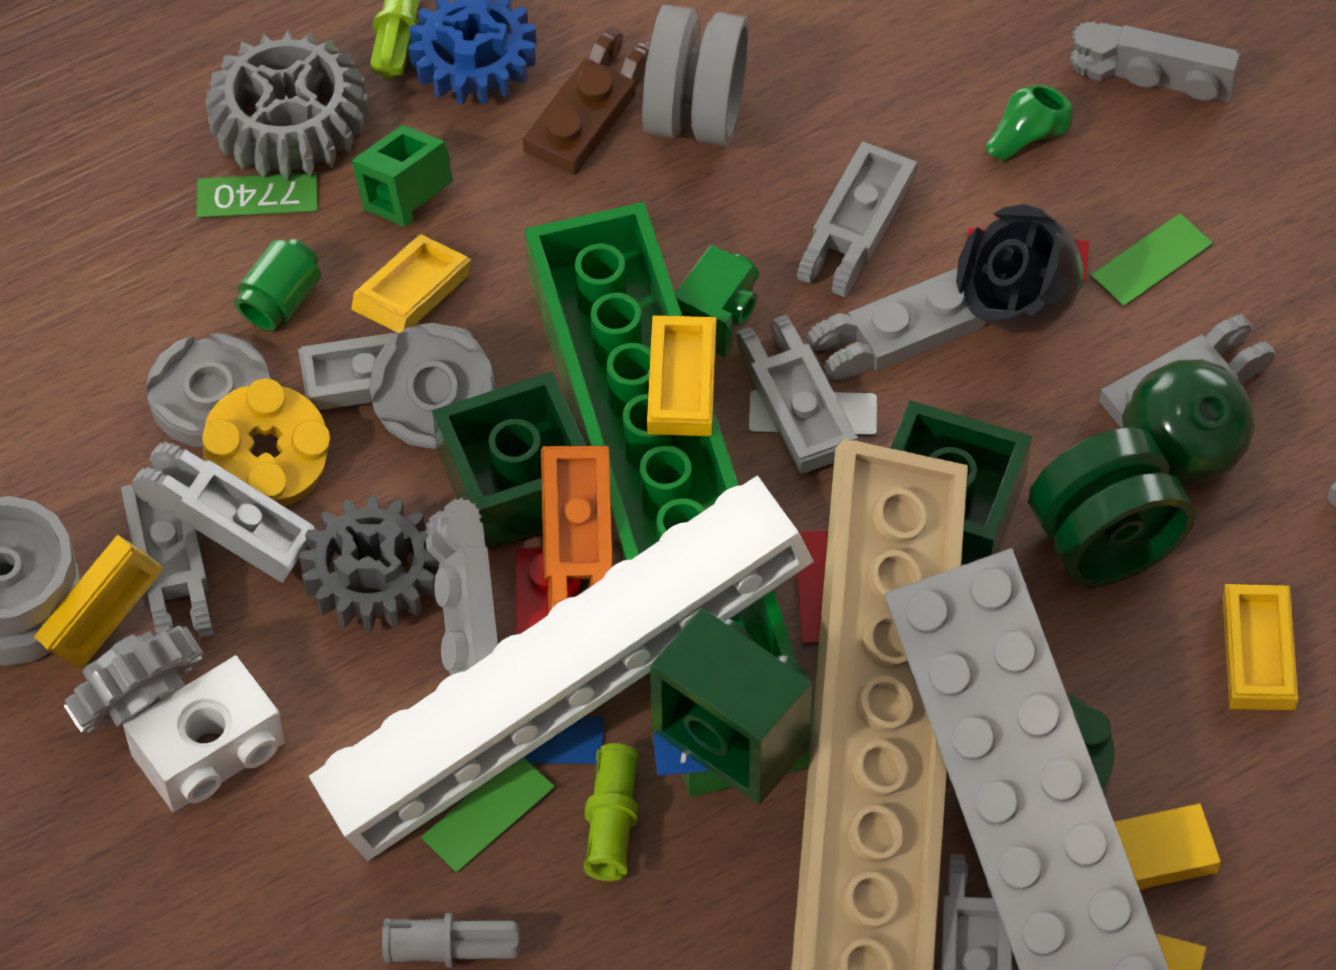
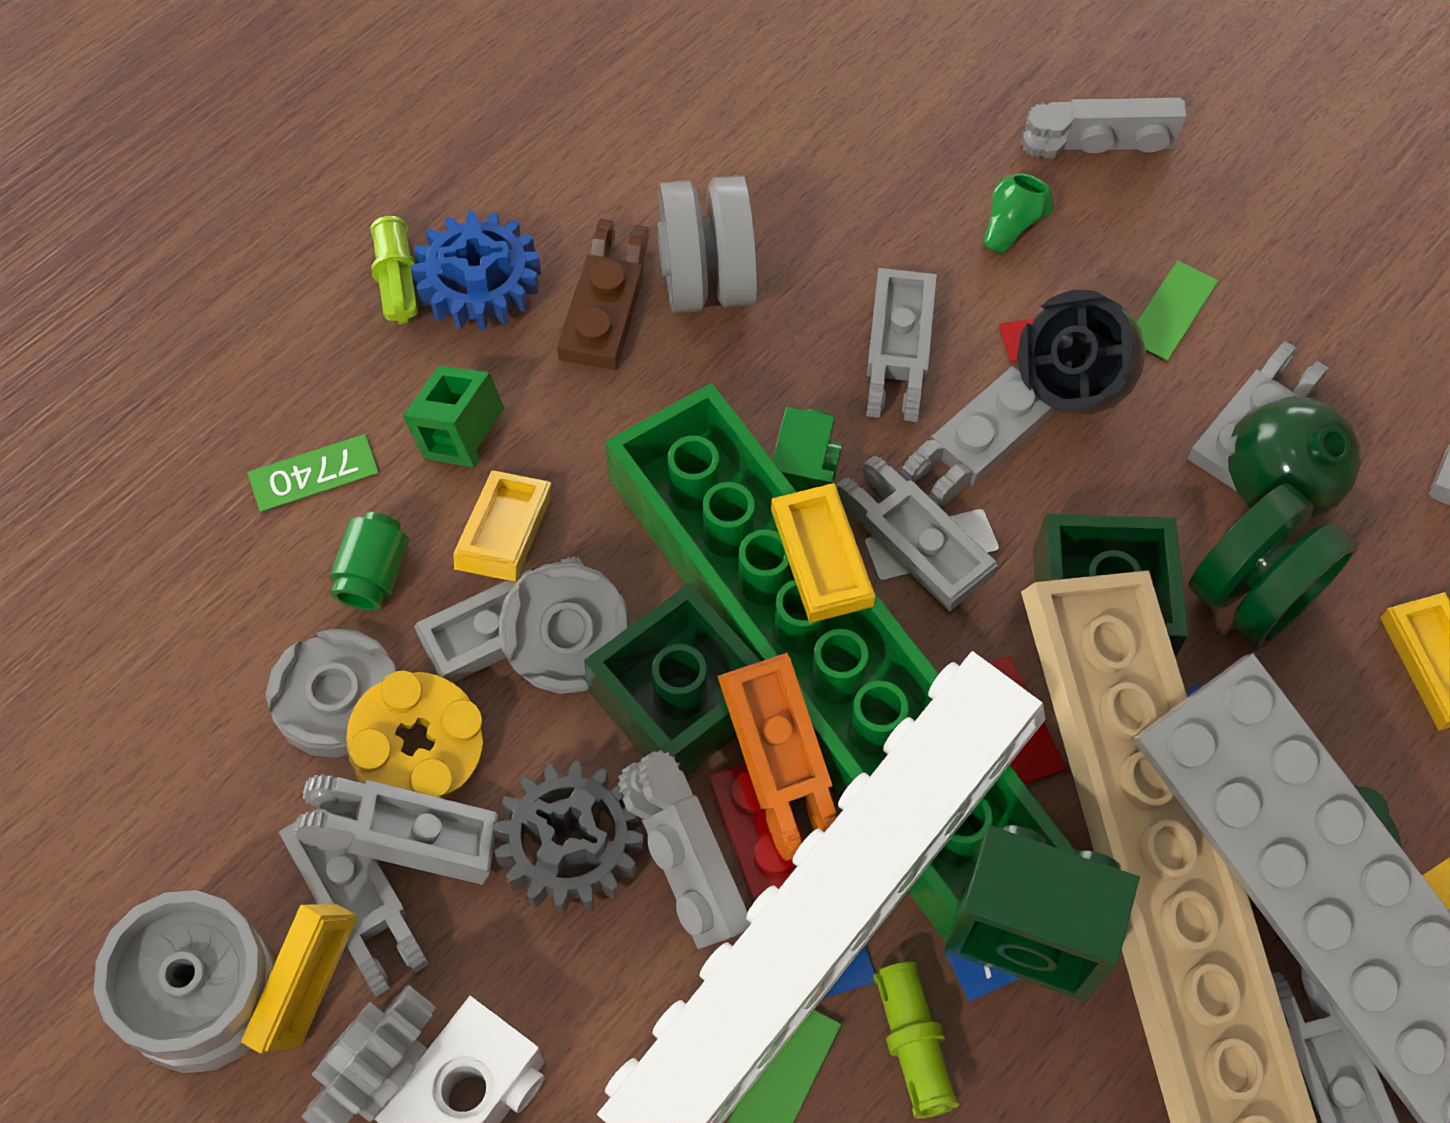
camera: 20 degrees left, 5 degrees up
(289, 122) = (324, 392): light grey gear -> none

